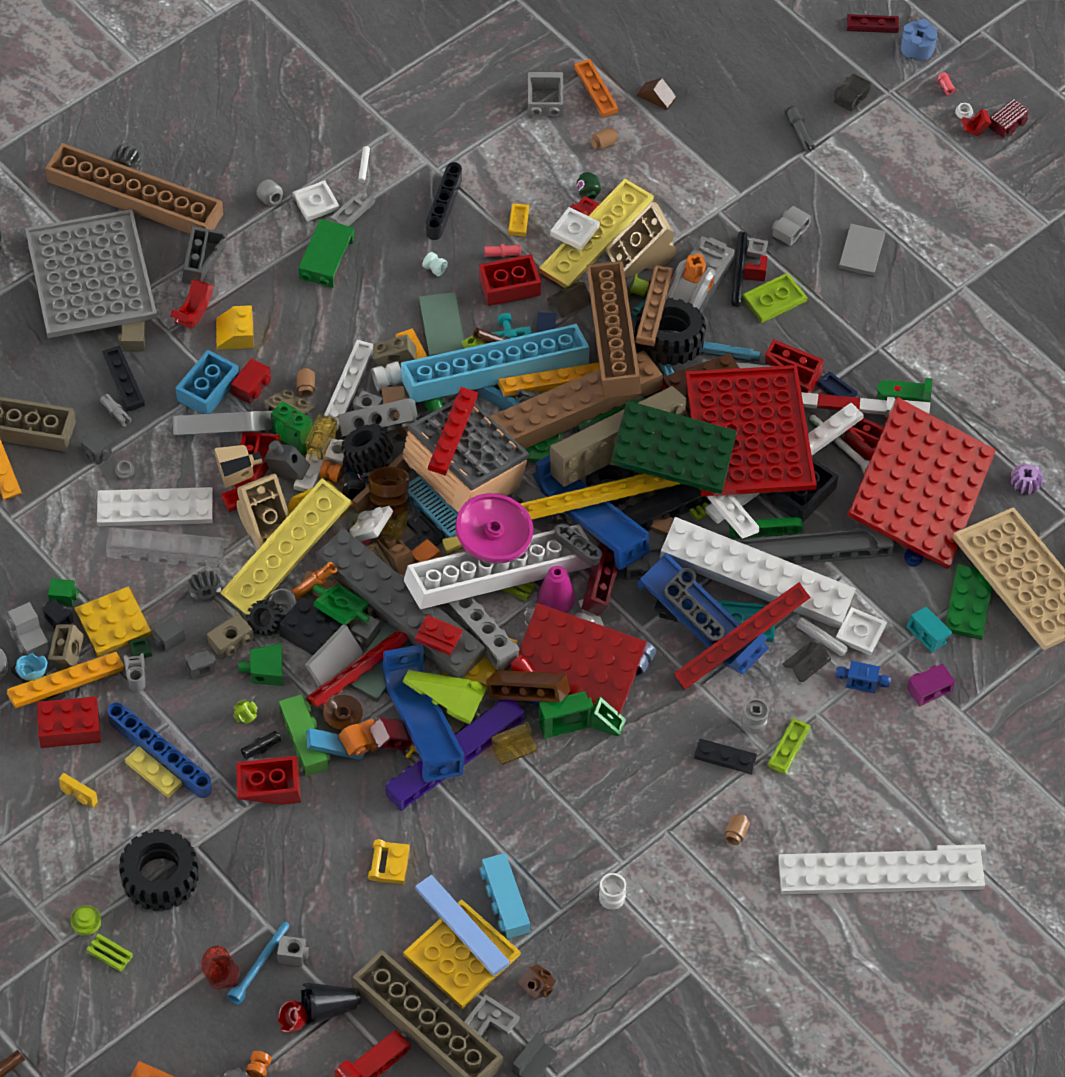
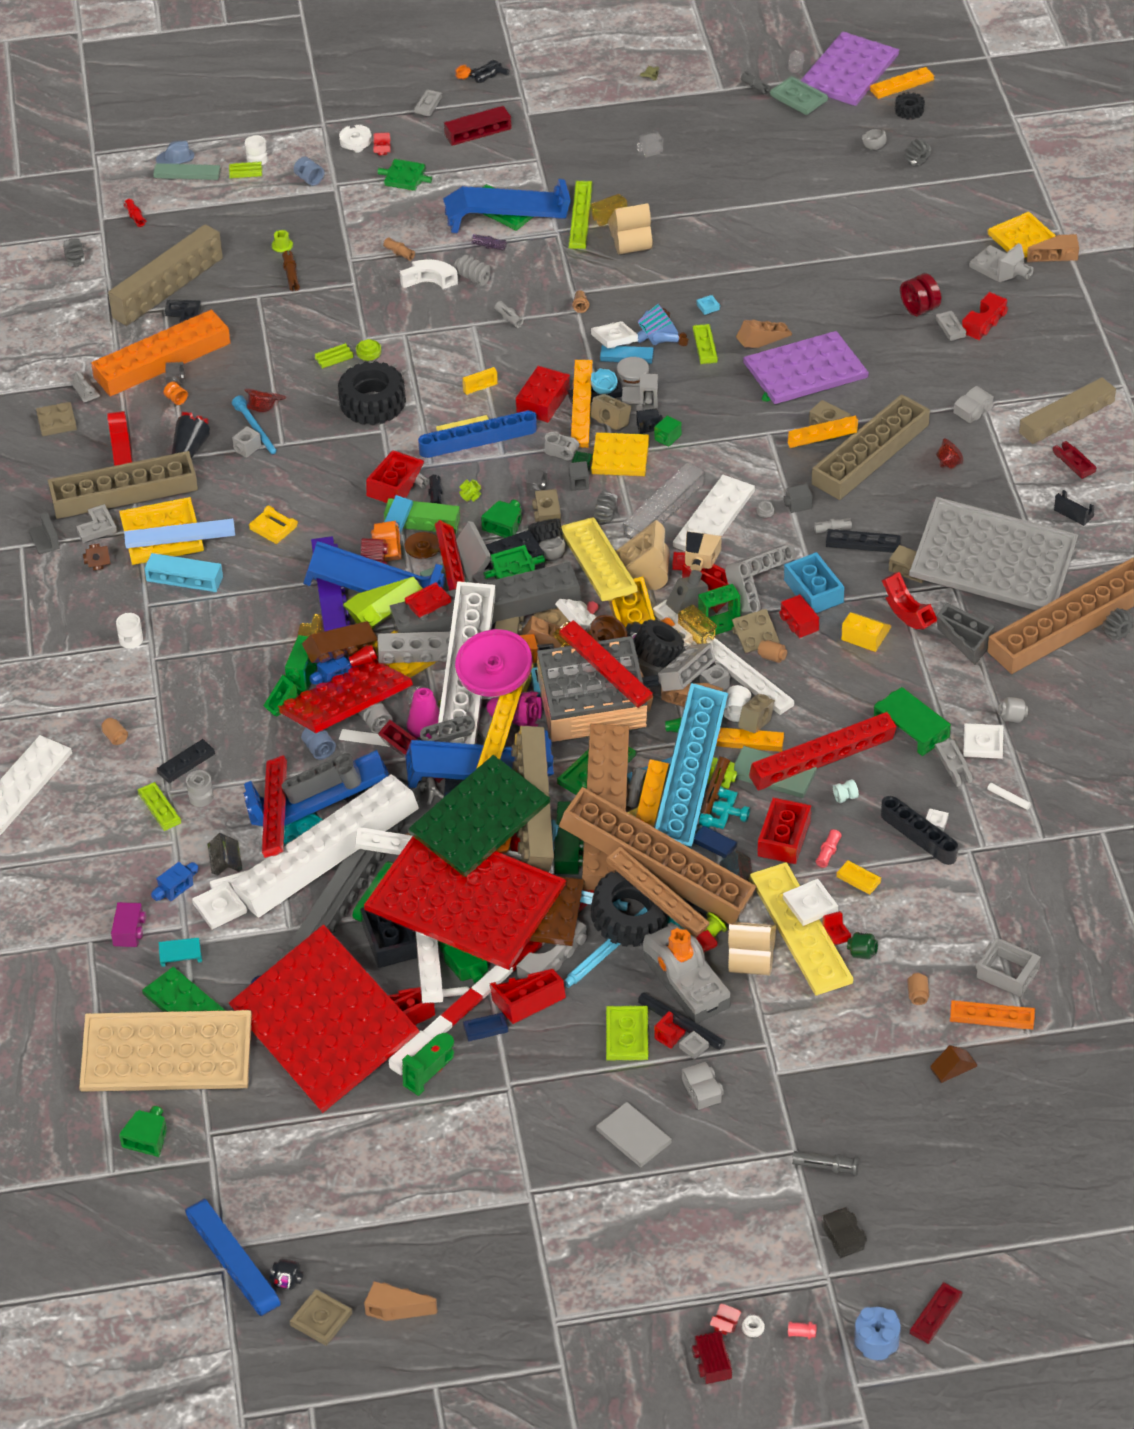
camera: 125 degrees right, 10 degrees down
(318, 577) = (550, 560): orange pin -> none
(405, 292) = (822, 750): none -> red brick
(424, 195) = (937, 818): none -> white plate
(1026, 478) = (269, 1113): lavender gear -> none

